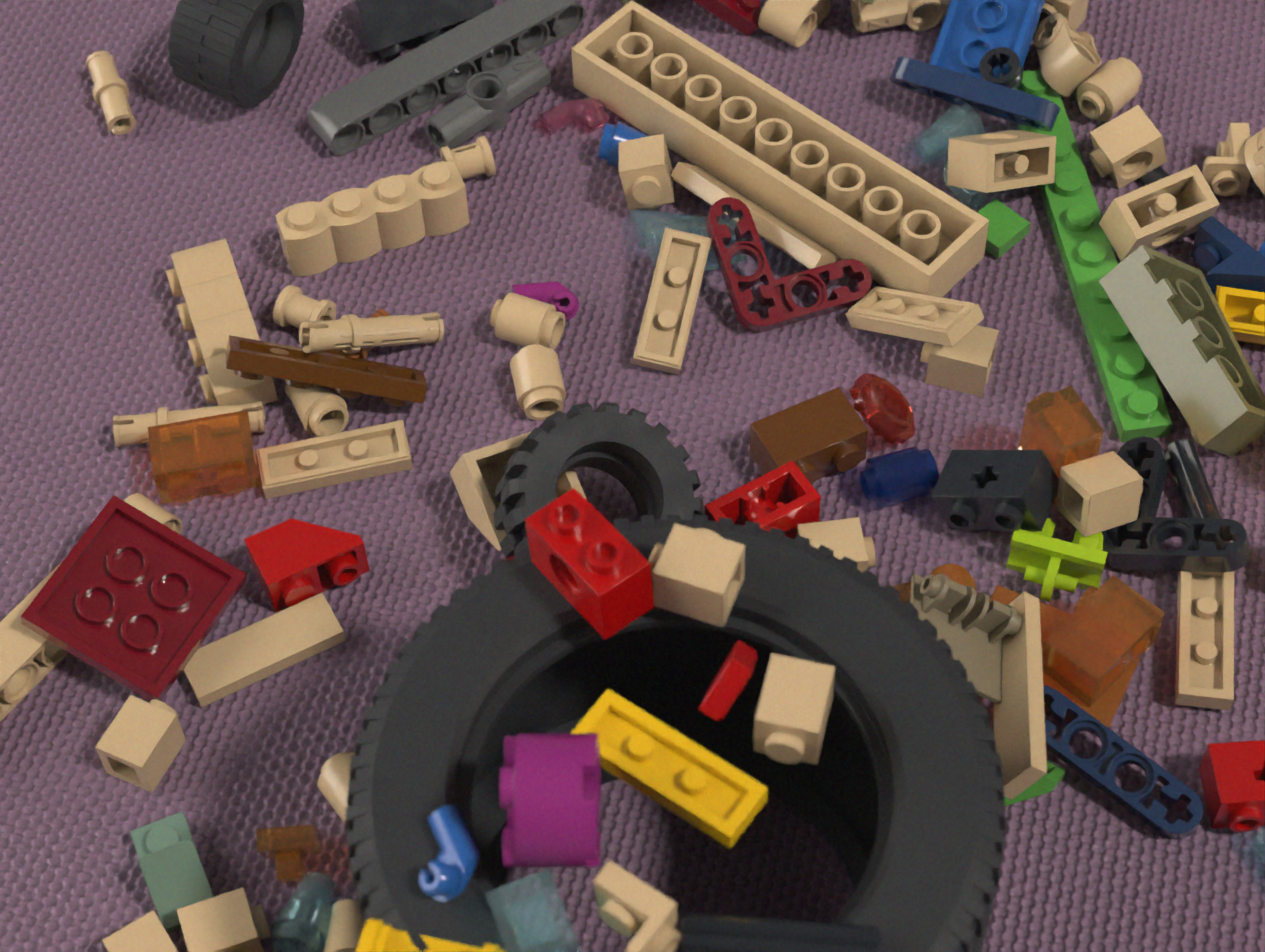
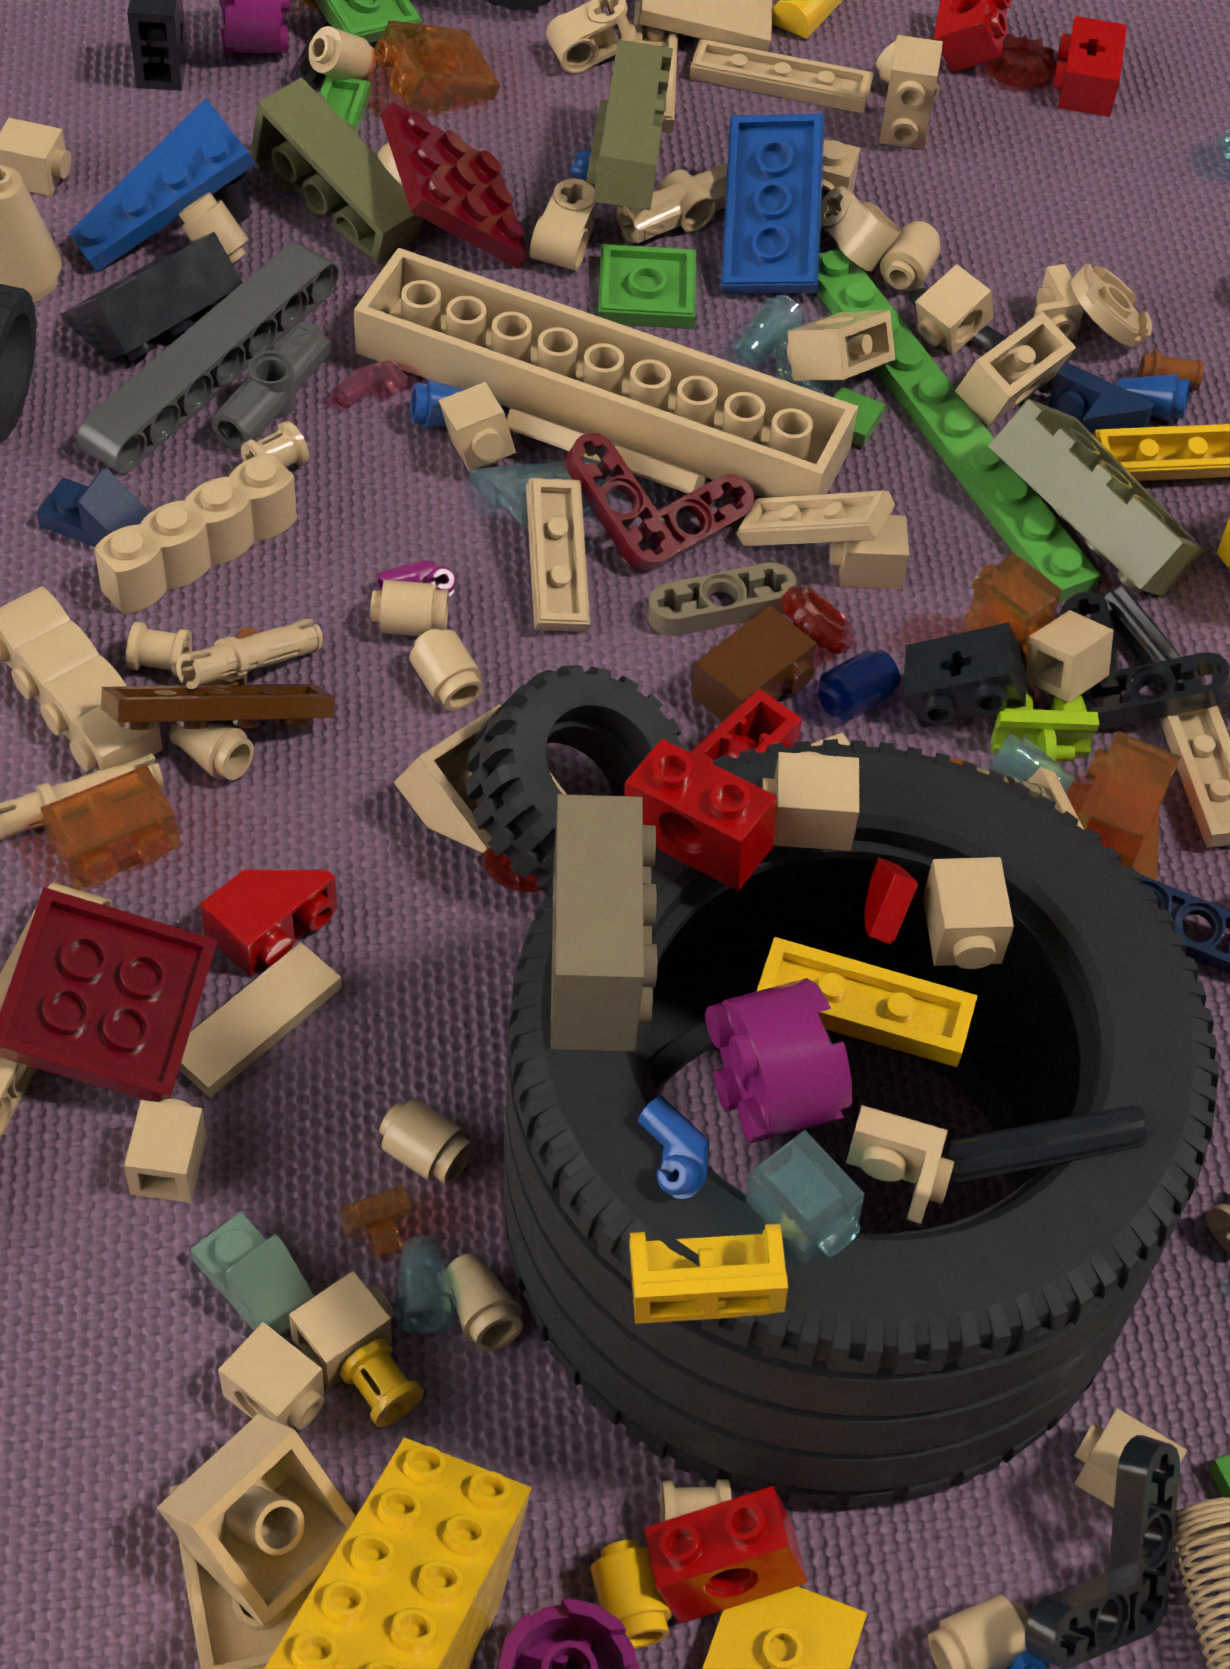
camera: 25 degrees left, 0 degrees up
(296, 178) = (90, 510): none -> dark blue slope
(334, 459) = (254, 798): tan tile -> none
(449, 638) = (602, 923): none -> dark tan brick
(795, 356) = (738, 582): none -> dark tan beam
(853, 74) = (647, 286): none -> bright green tile
(978, 93) = (799, 283): dark blue beam -> none
(998, 57) = (811, 268): black bush -> none
(1014, 577) = (1023, 758): none -> clear light blue cone

